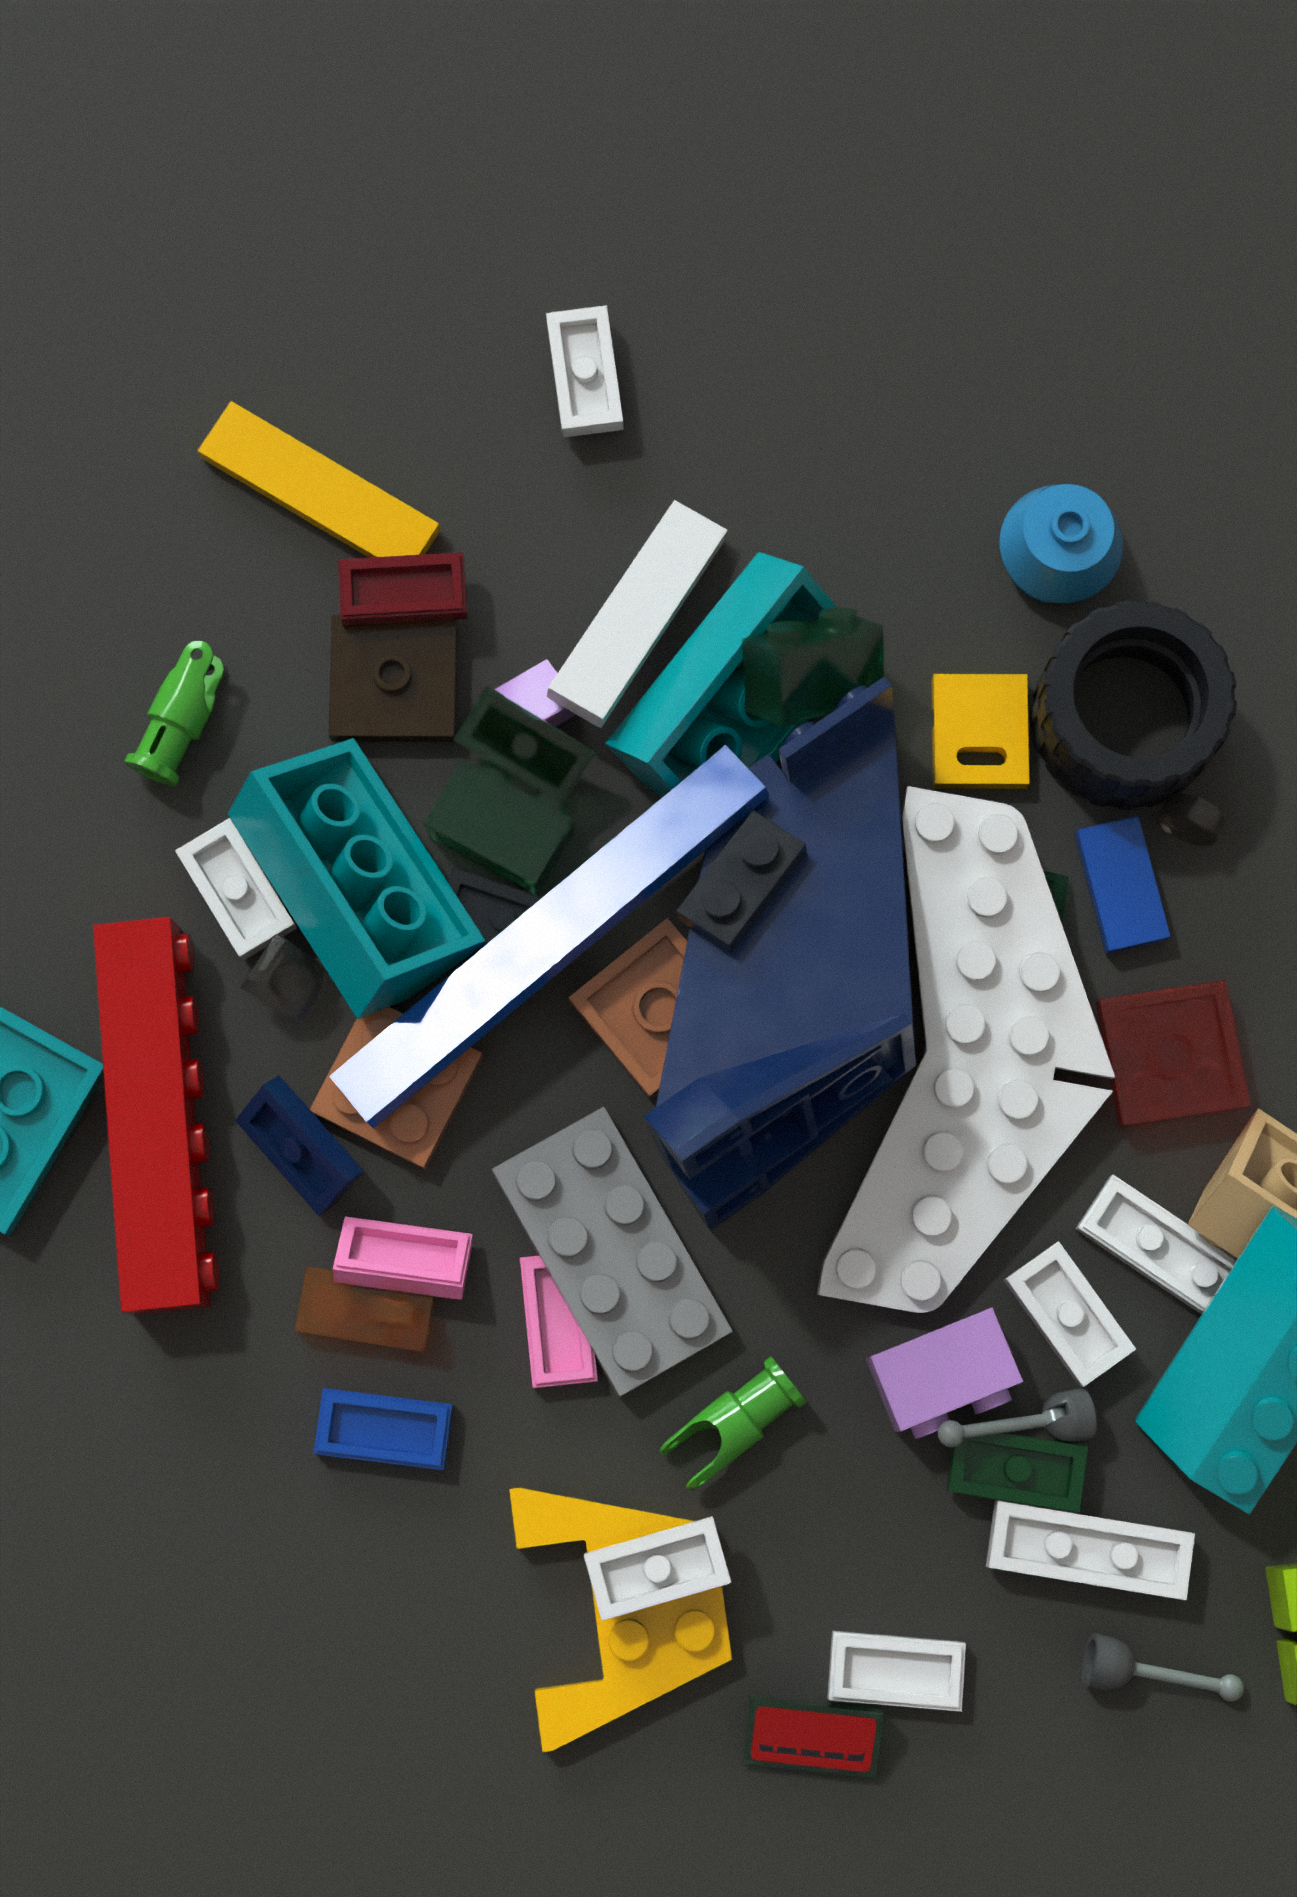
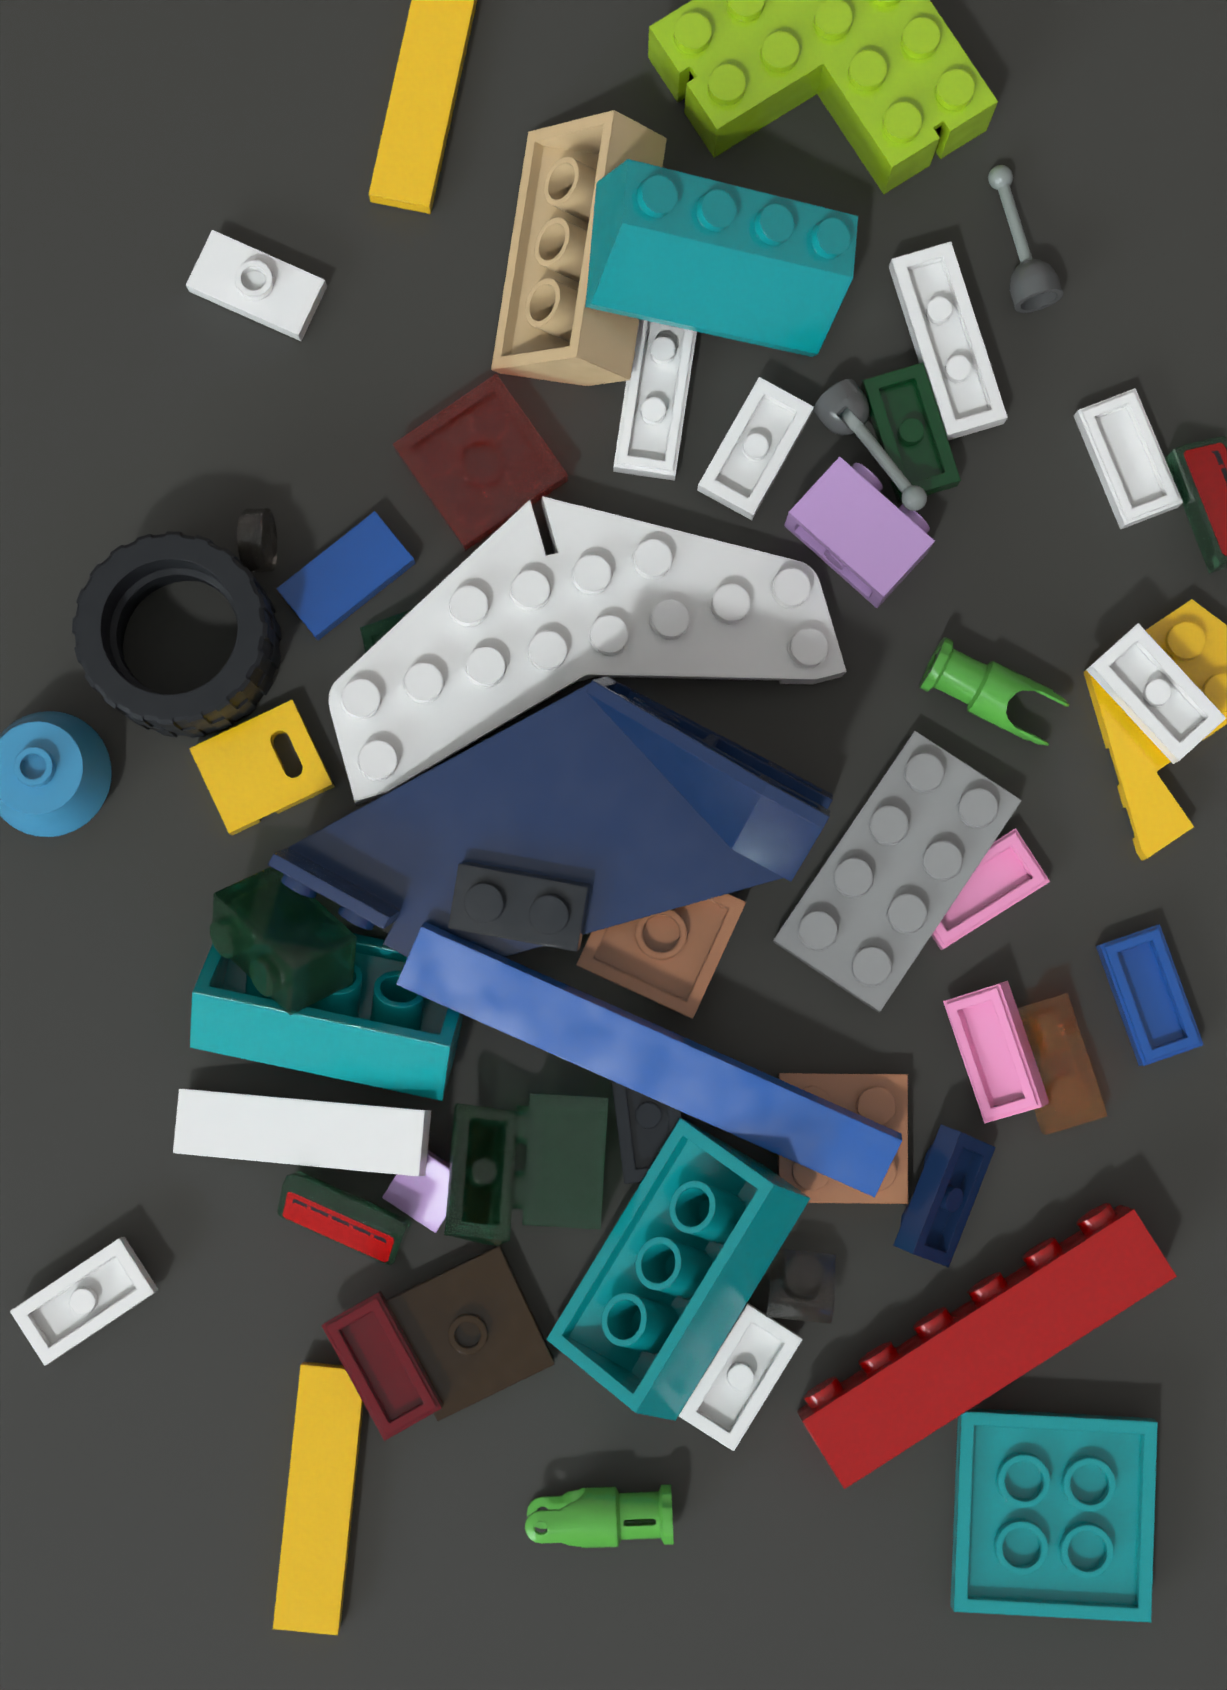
camera: 115 degrees left, 5 degrees up
(548, 618) = (342, 1217): none -> slope

